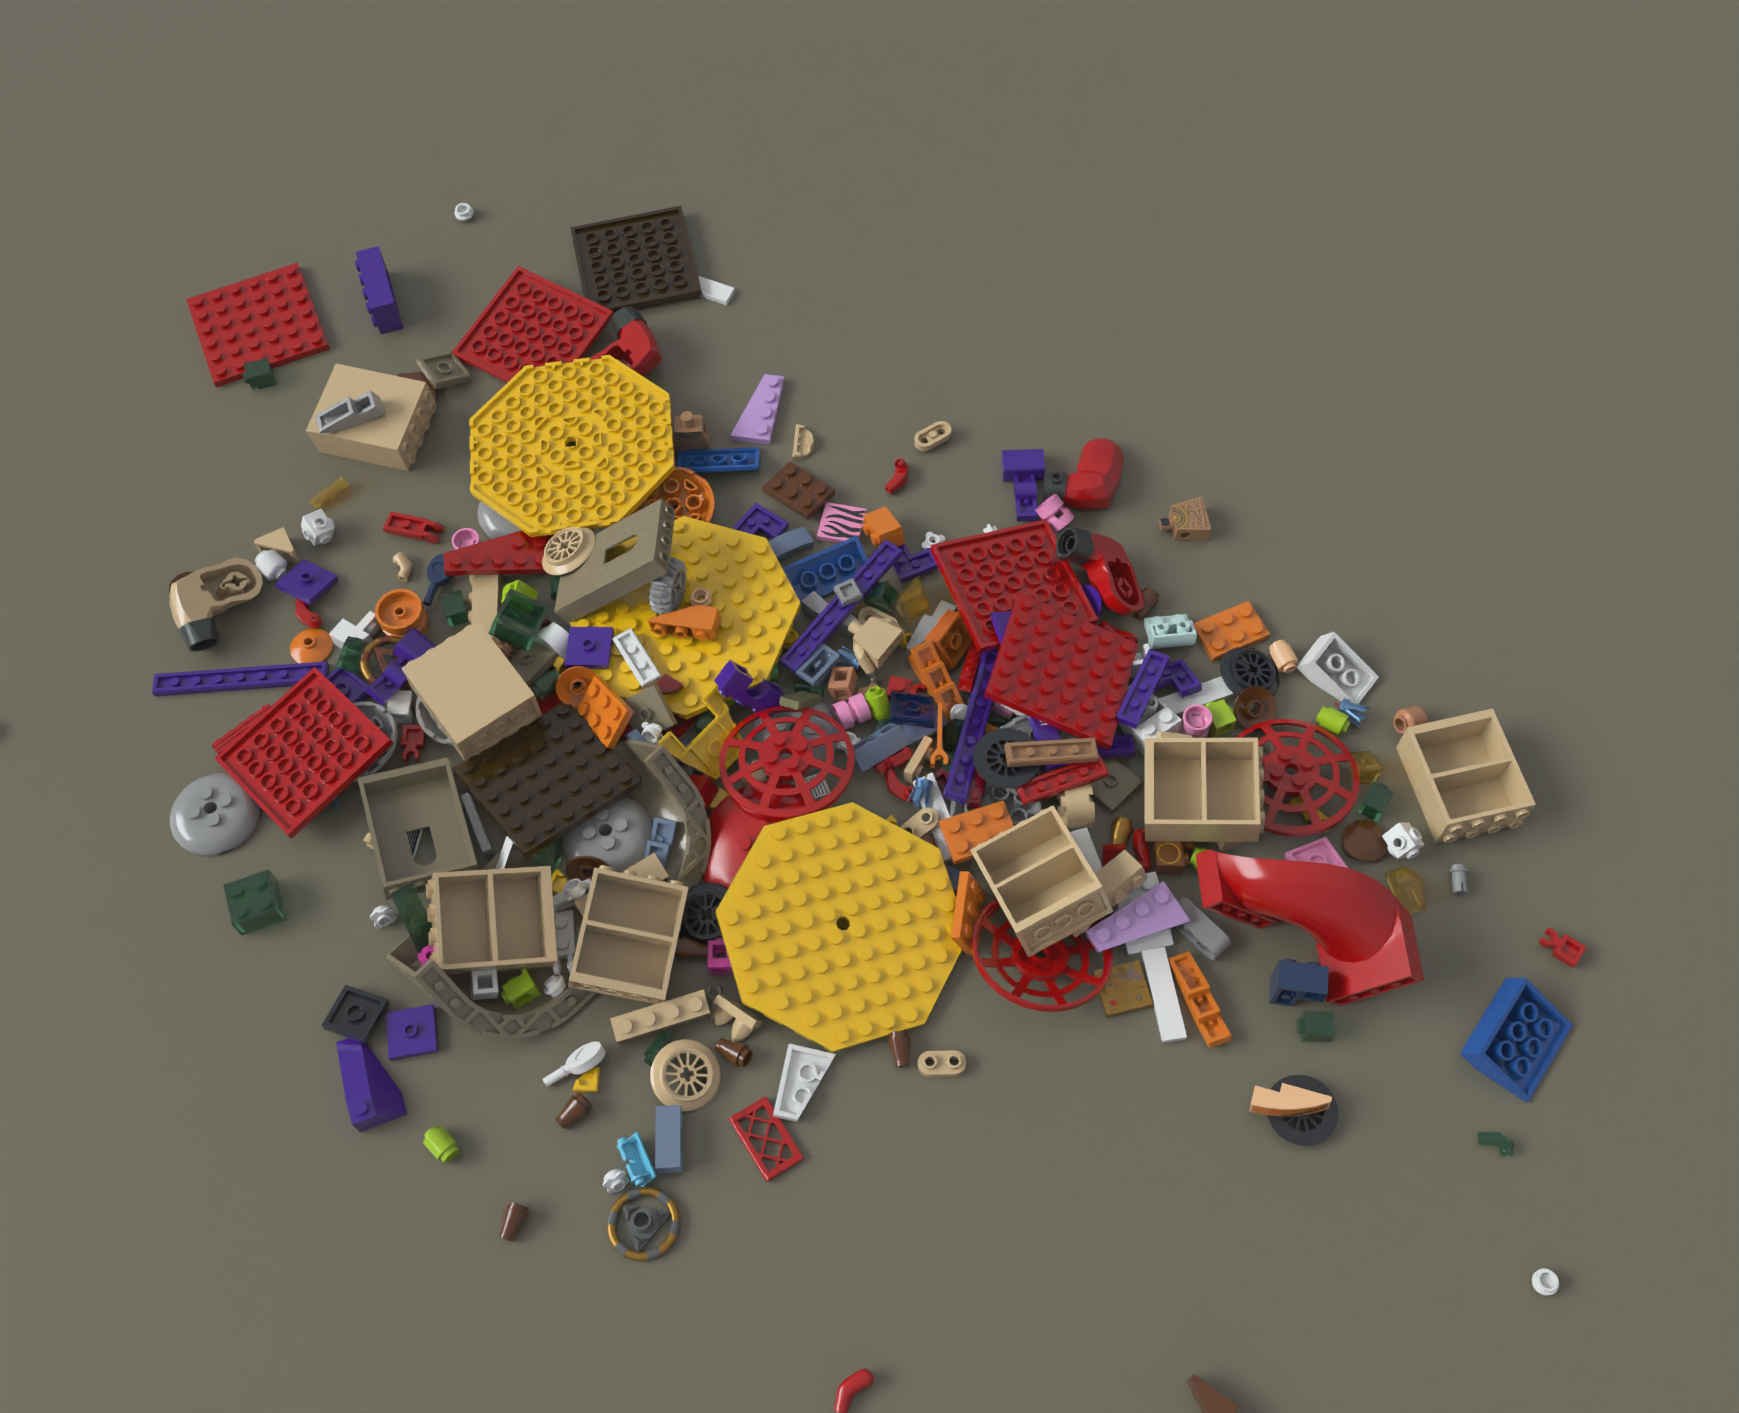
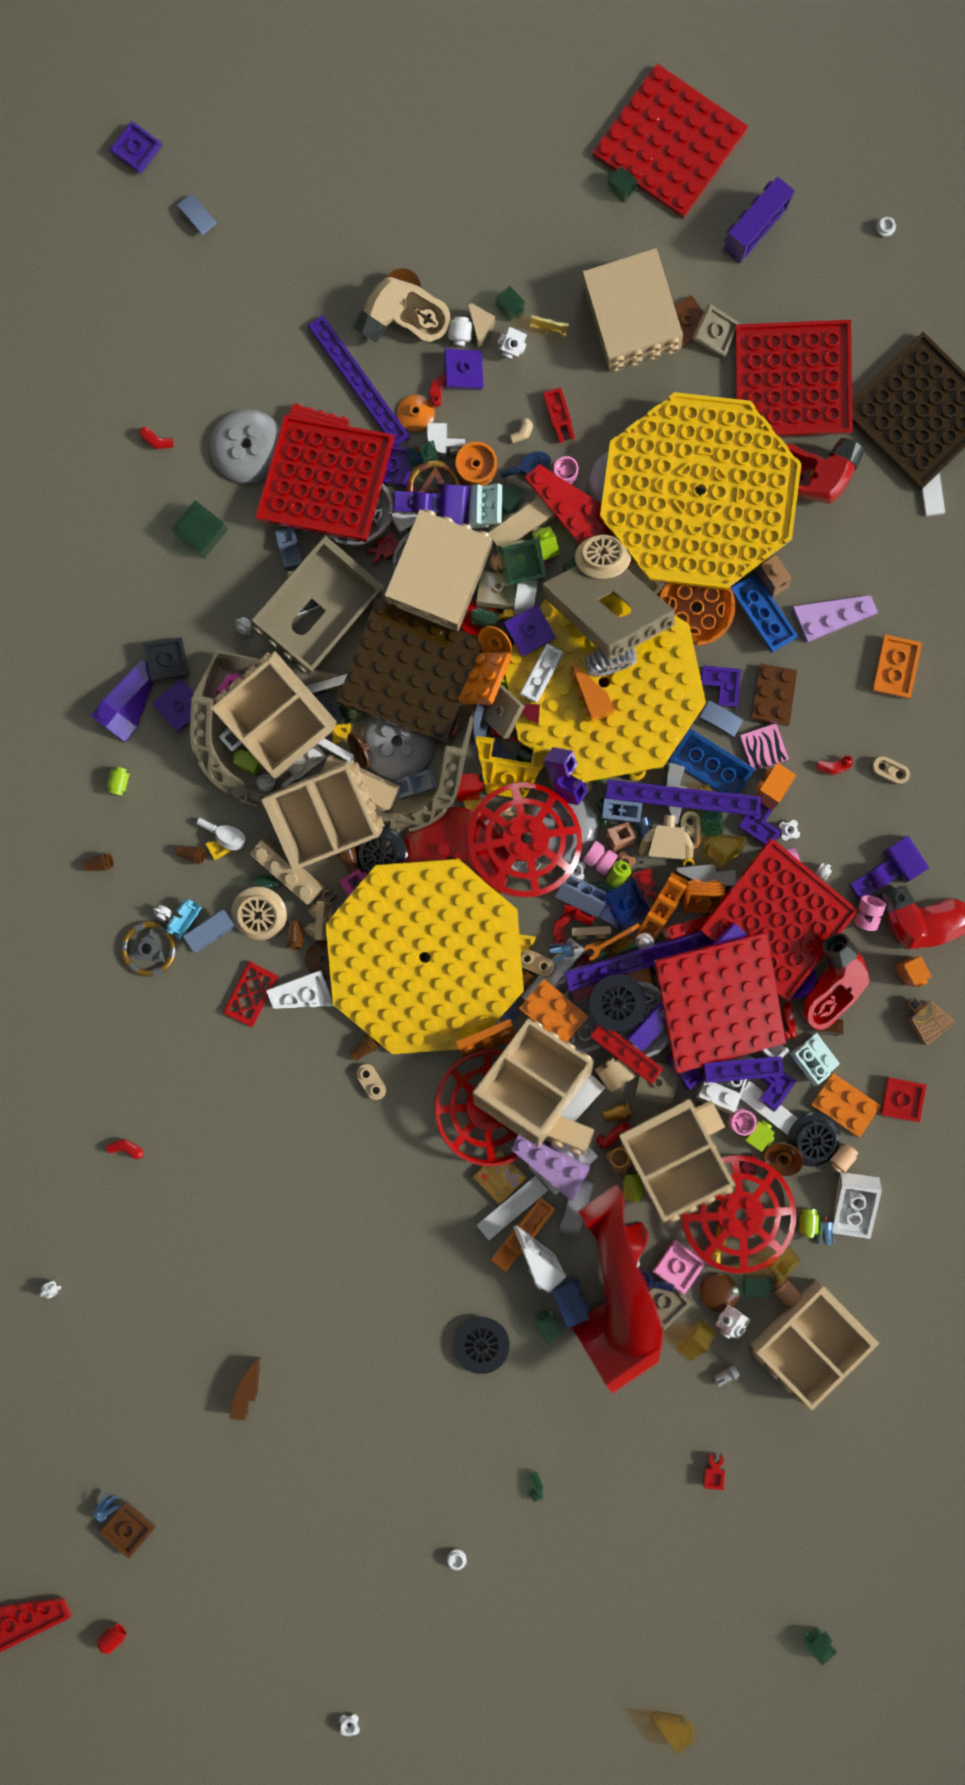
camera: 55 degrees right, 25 degrees up
(135, 897) = (153, 440): none -> red arm
(283, 512) = (510, 303): none -> clear green brick
(342, 831) = (289, 548): none -> sand blue slope
(350, 413) = (616, 297): light grey slope -> none
(412, 915) = (250, 651): clear green tile -> none
(441, 622) = (485, 505): none -> light aqua brick
(478, 826) = (348, 644): light grey tile -> none
(574, 889) = (335, 752): white plate -> none
(651, 732) = (488, 726): white plate -> none
(701, 593) = (619, 683): light nougat plate -> none
(773, 1048) = (313, 957): none -> reddish brown dish
(800, 700) = (583, 816): olive tile -> none
(803, 443) = (823, 669): tan tile -> none
(842, 386) = (896, 666): none -> orange plate
(848, 592) = (694, 797): light grey tile -> none
(1051, 752) = (640, 1034): medium nougat tile -> none
(1111, 851) = (597, 1117): red tile -> none
(1133, 505) = (913, 971): none -> orange brick
(1237, 989) = (541, 1261): none -> white slope
(1253, 579) = (903, 1099): none -> red plate
(1288, 1102) = (477, 1334): light nougat slope -> none
(1397, 776) = (786, 1293): none -> nougat brick
(1409, 717) = (842, 1281): nougat head -> none
(1517, 1037) = (622, 1469): blue slope -> none

